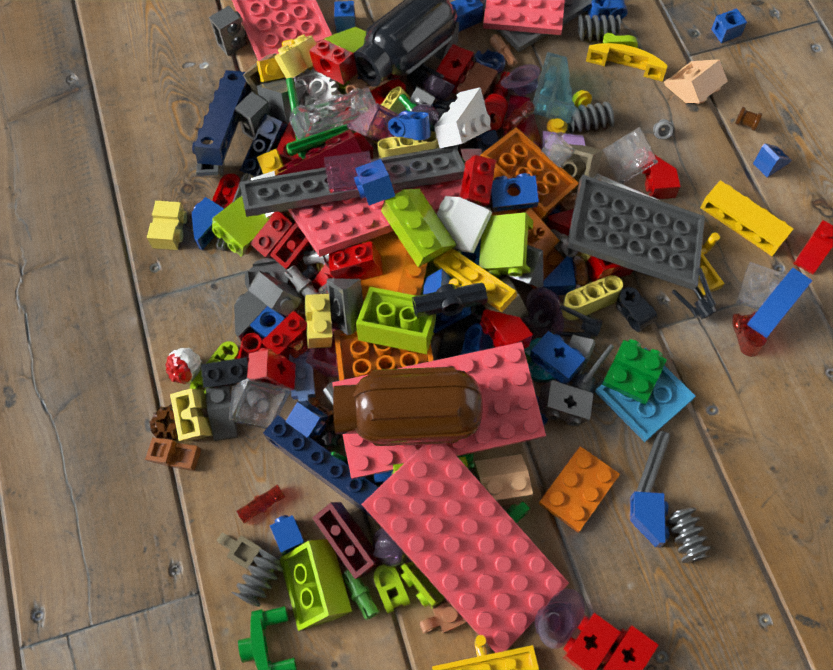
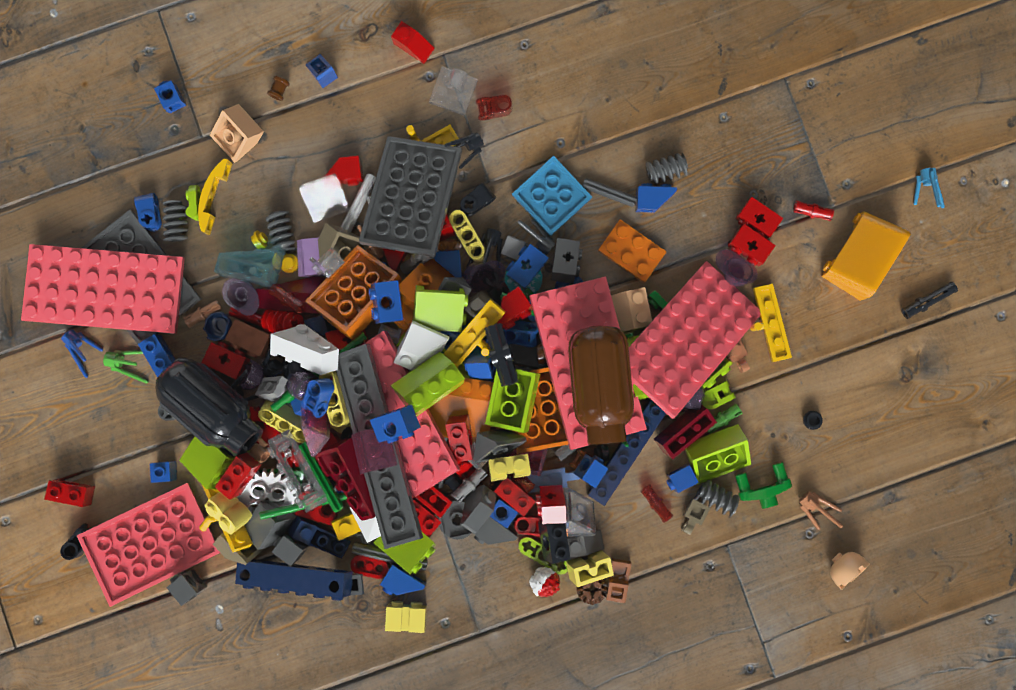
camera: 95 degrees left, 20 degrees up
(478, 180) = (380, 334): red brick -> none
(635, 371) = (536, 203): green plate -> none
(663, 134) = (291, 166): light grey plate -> none
(746, 218) = (384, 99): yellow brick -> none
(779, 302) = (473, 81): blue slope -> none

